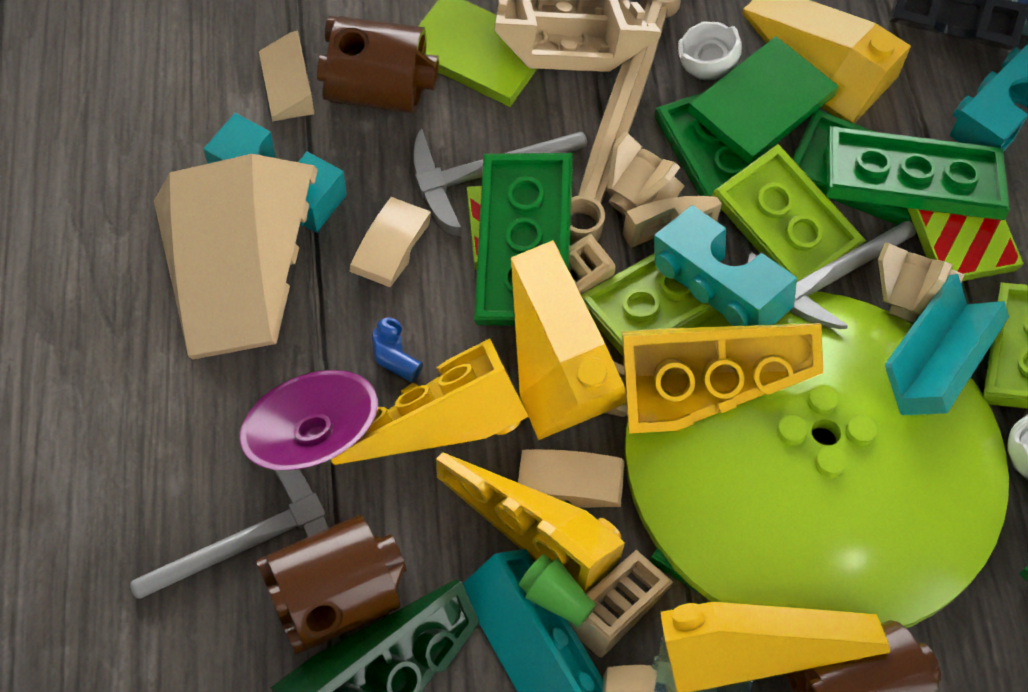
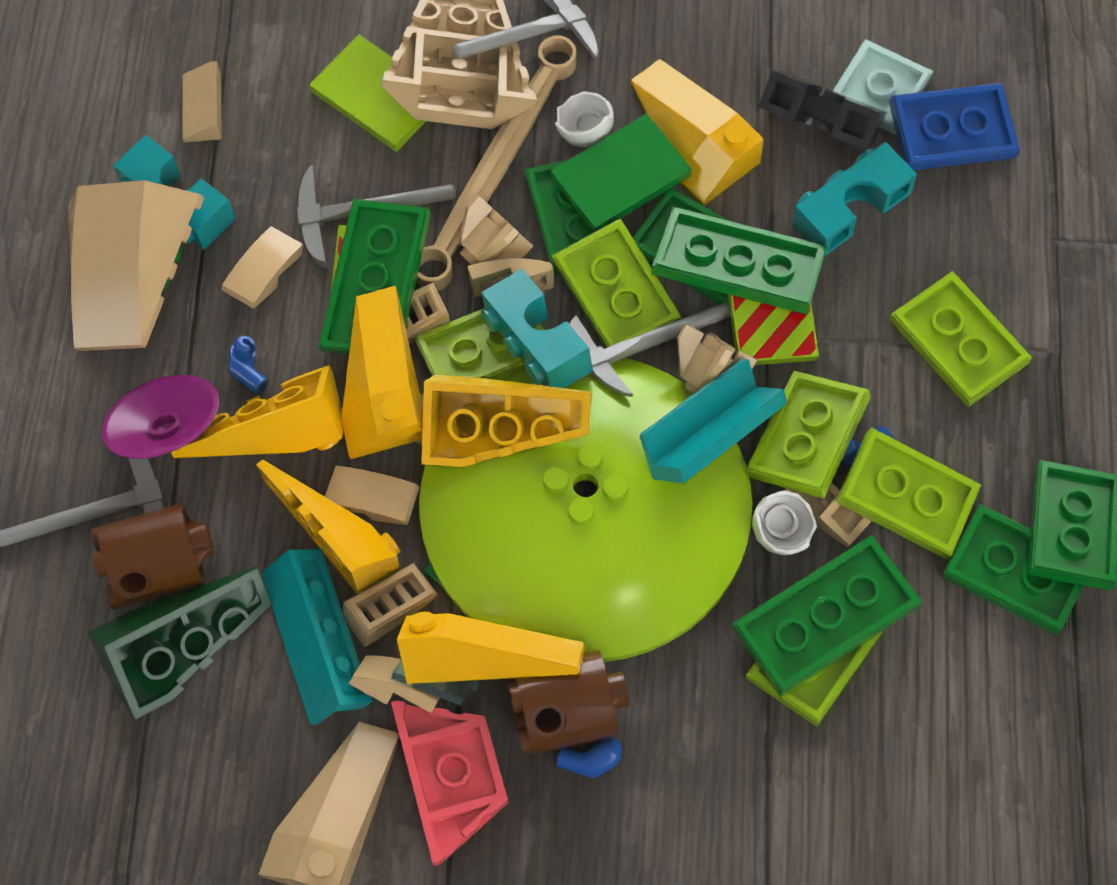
camera: 15 degrees right, 5 degrees up
(376, 64) = (277, 102): reddish brown cylinder -> none
(556, 590) = (328, 585): bright green cone -> none

